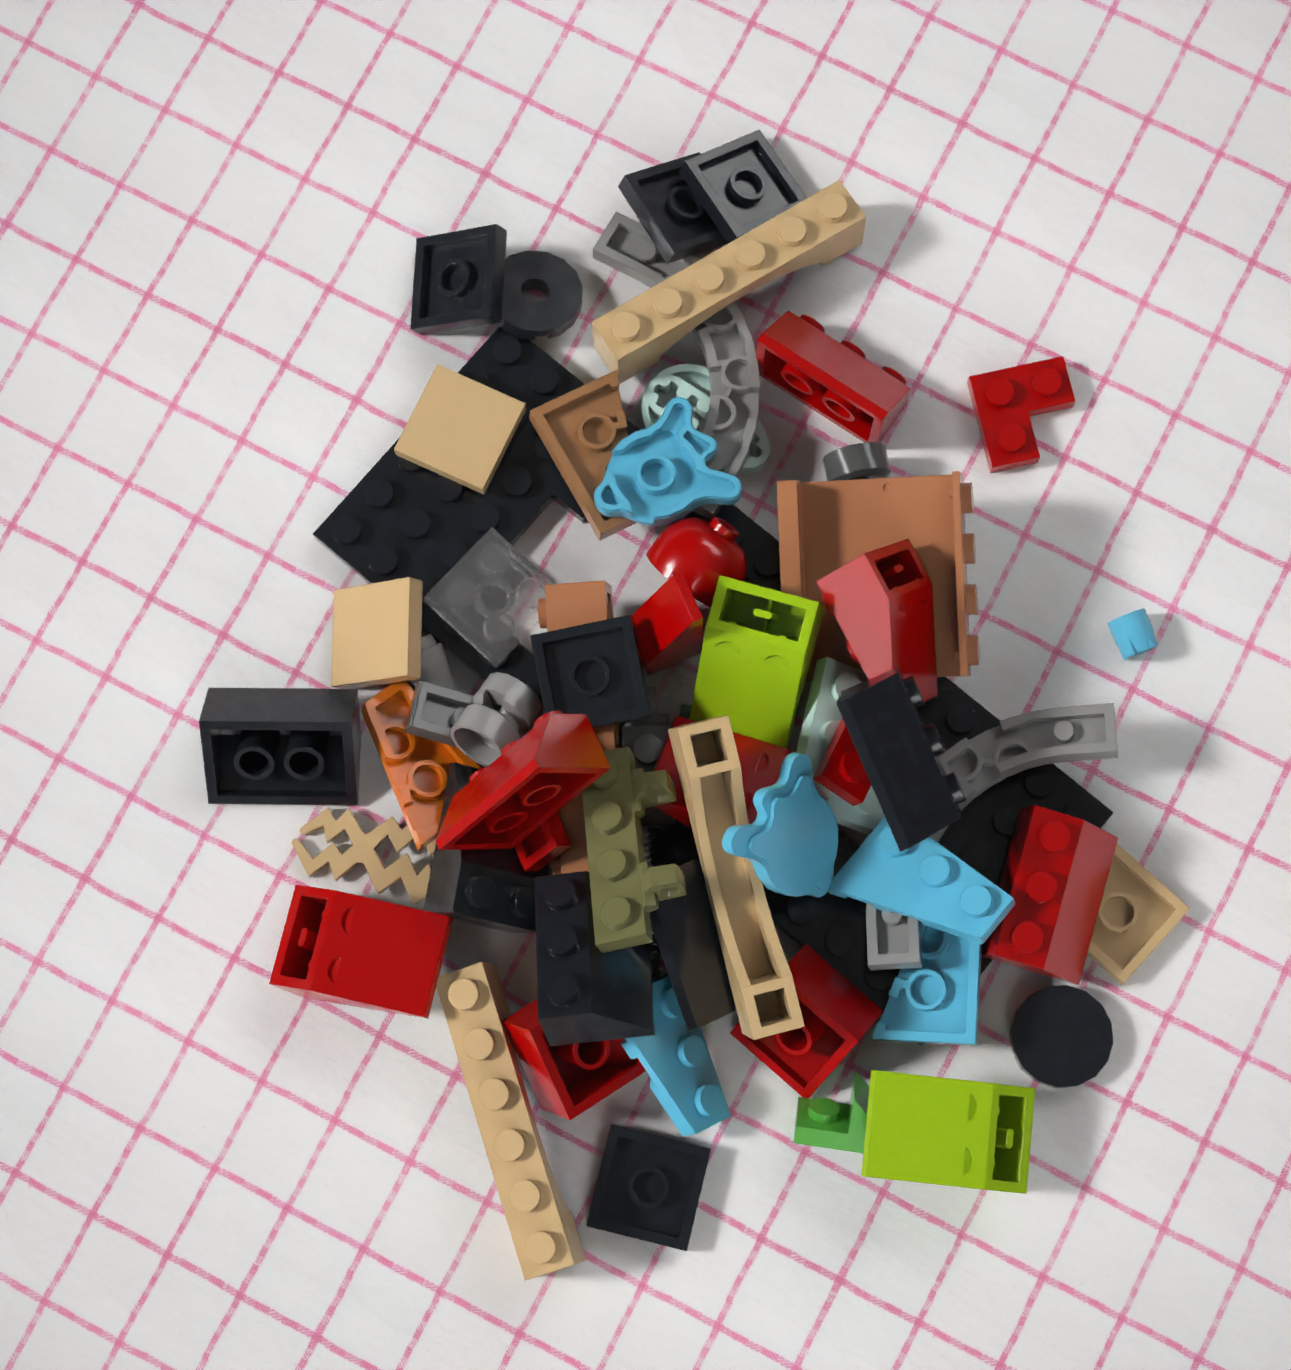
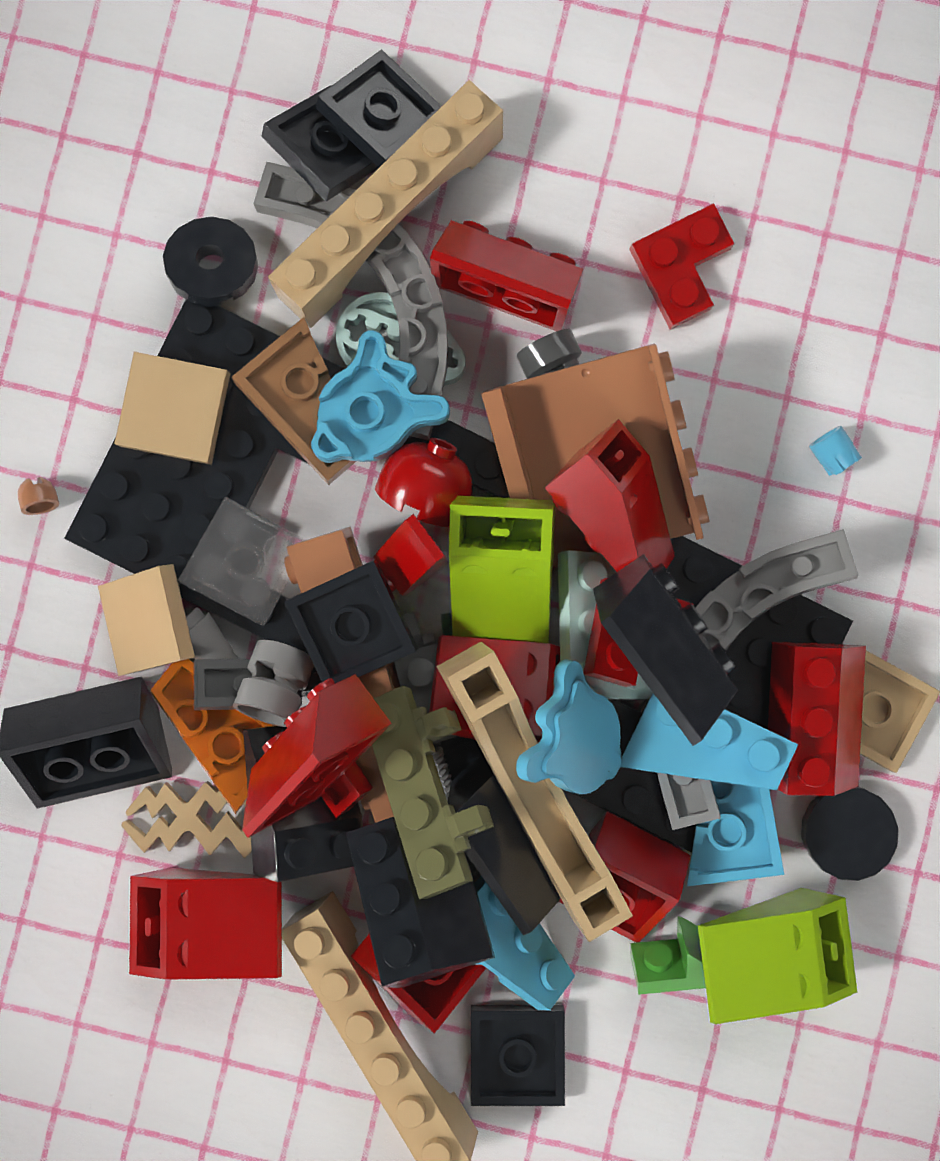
camera: 15 degrees left, 10 degrees up
(296, 486) = (38, 497): none -> nougat hinge
(458, 280) = (135, 263): black tile -> none

